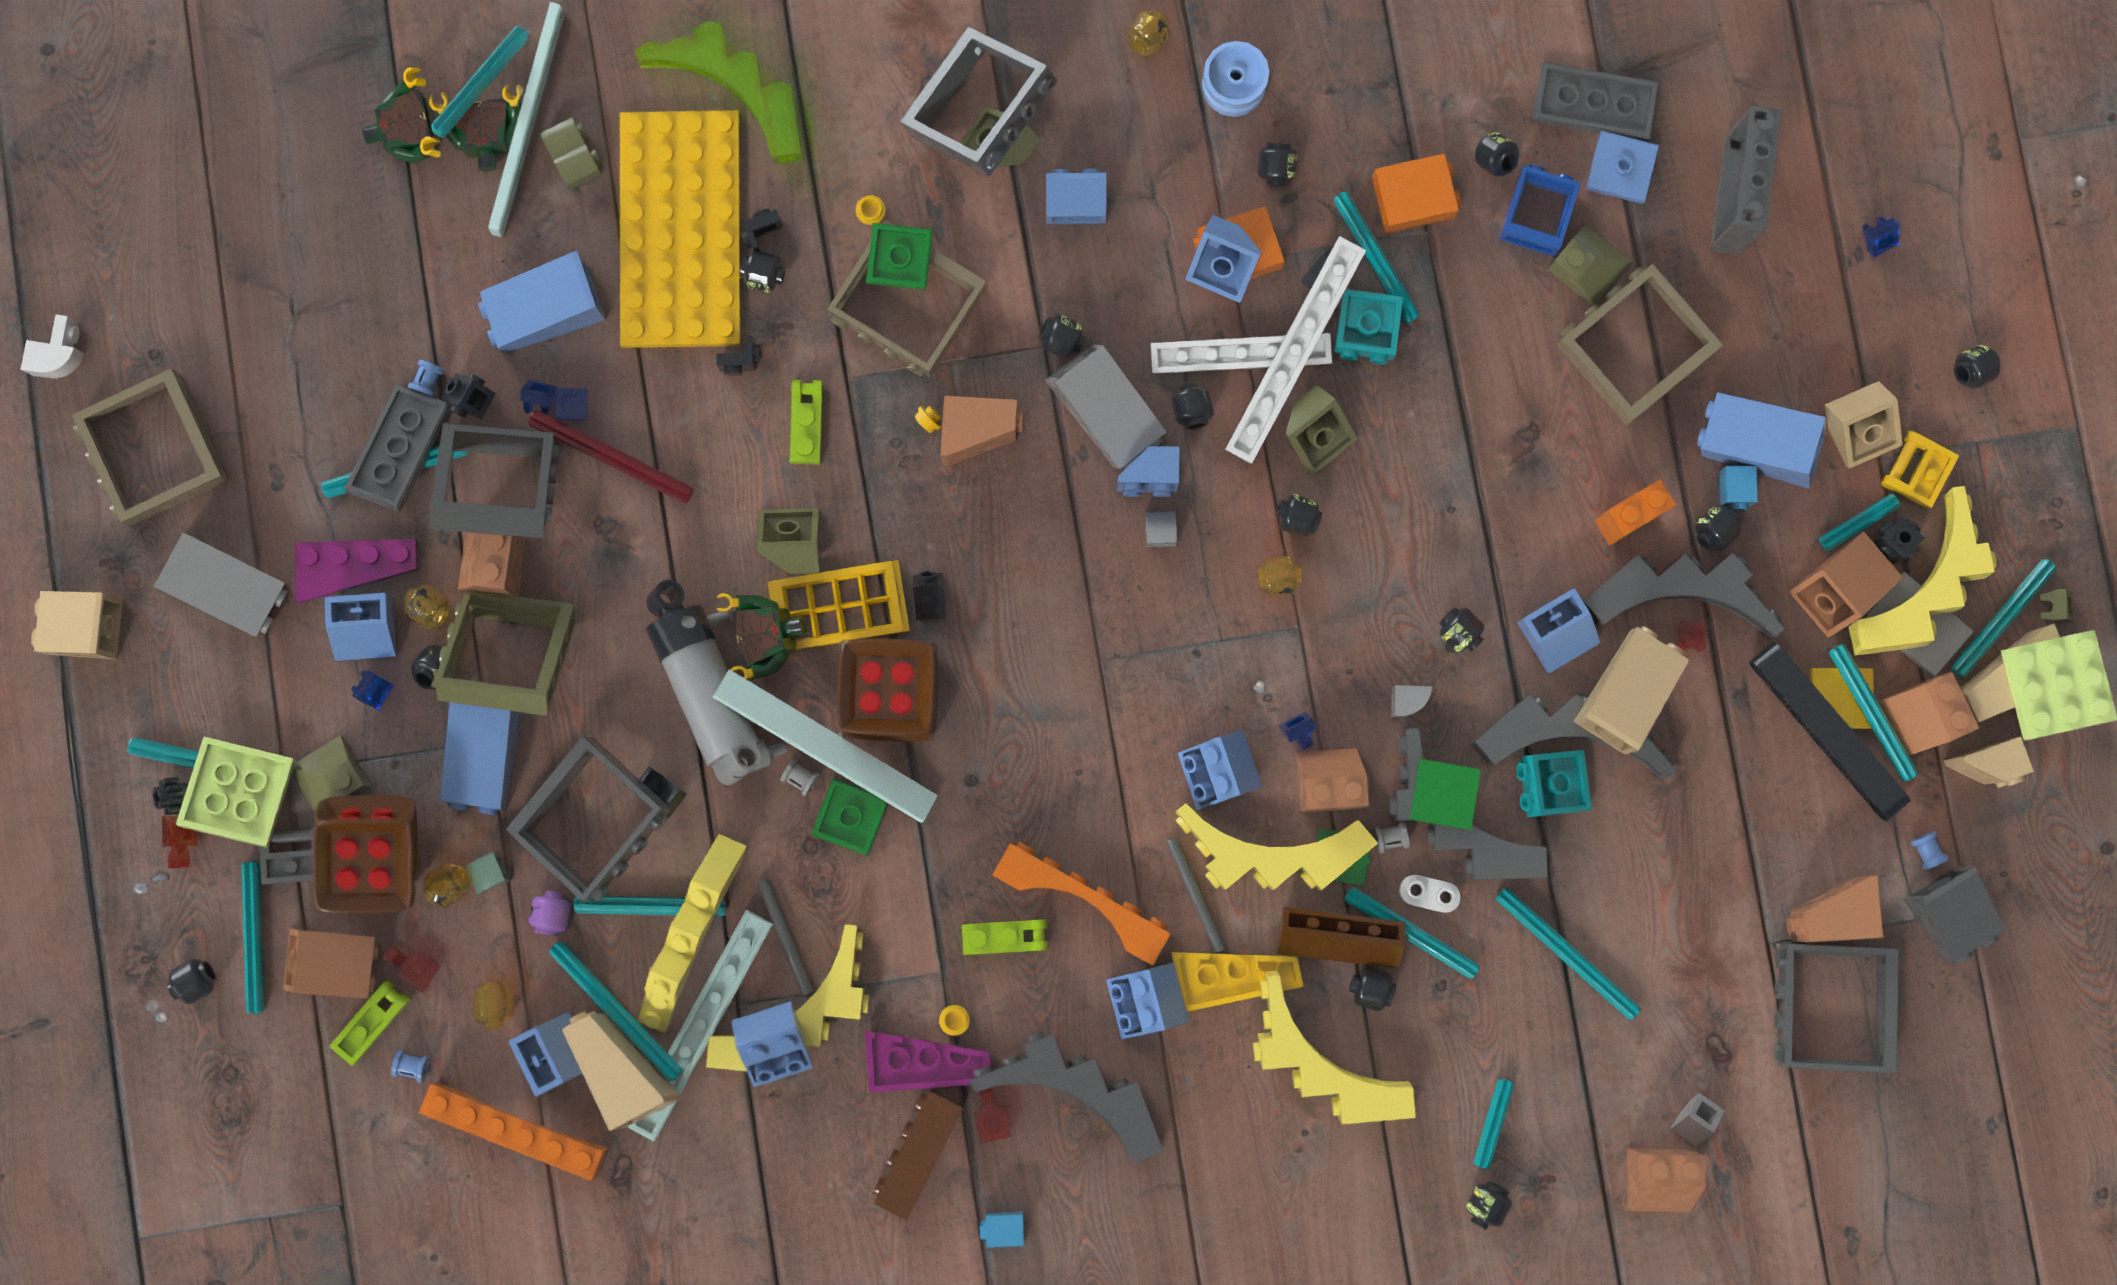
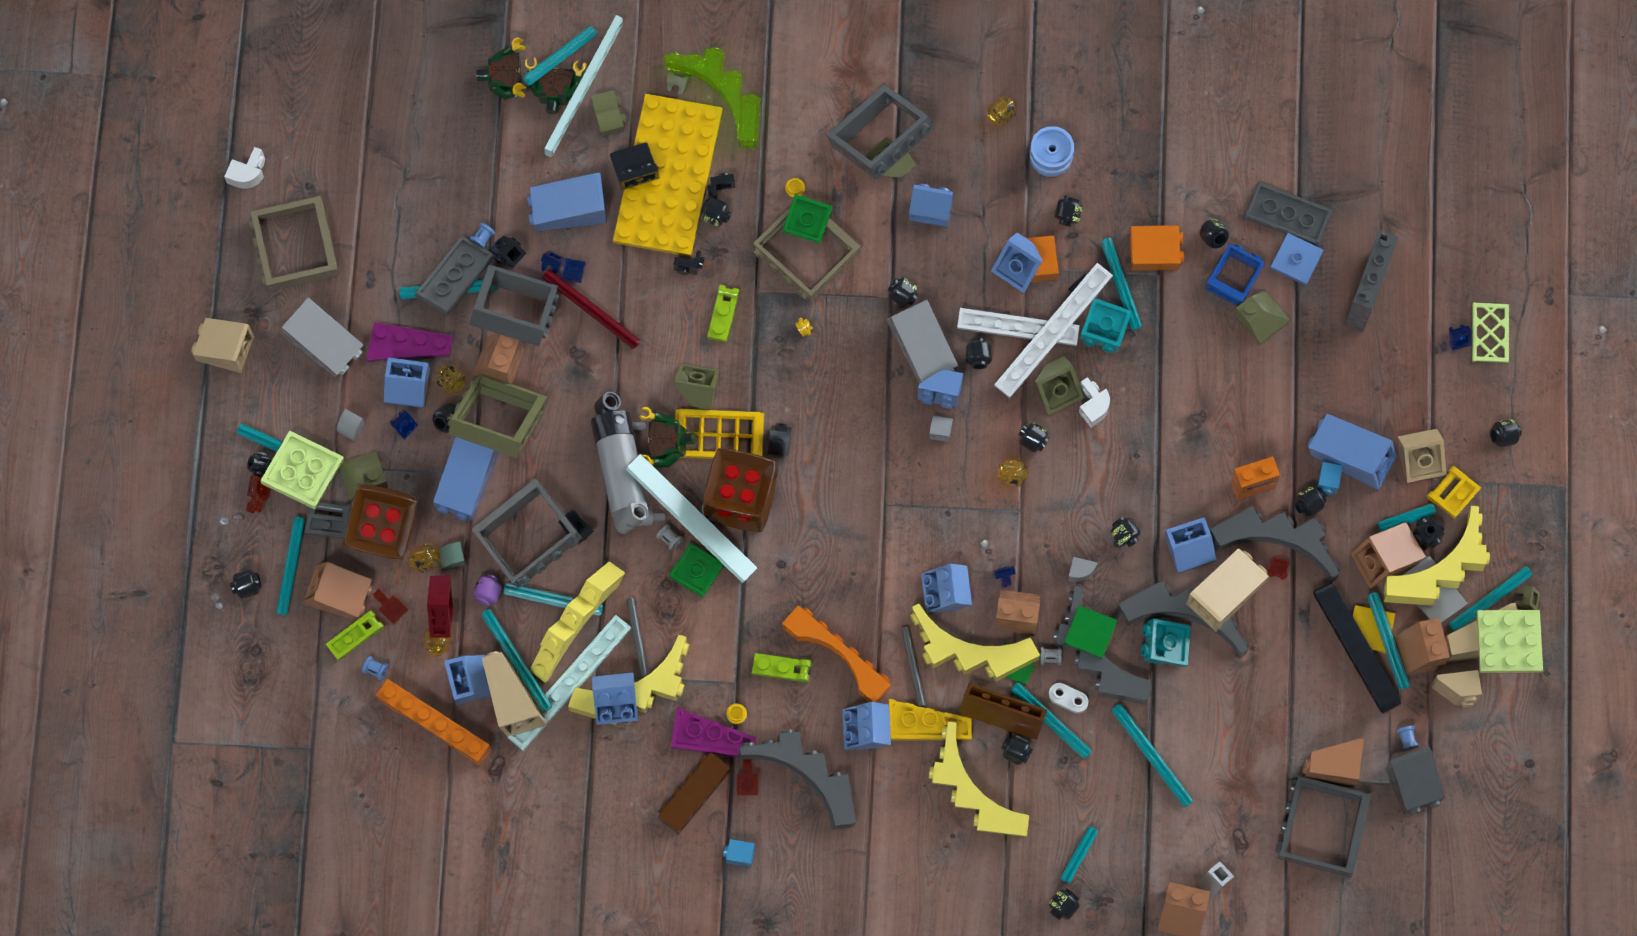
camera: 15 degrees right, 10 degrees down
(293, 707) = (350, 425): none -> light grey brick
(483, 960) = (440, 606): none -> dark red window
(626, 227) = (634, 166): none -> black bracket
(663, 80) = (677, 79): none -> olive tile
(977, 426) = (834, 337): nougat slope -> none
(1382, 445) = (1098, 404): none -> white brick
(1596, 377) = (1295, 403): dark tan window -> none
(1939, 202) = (1476, 341): none -> yellowish green window

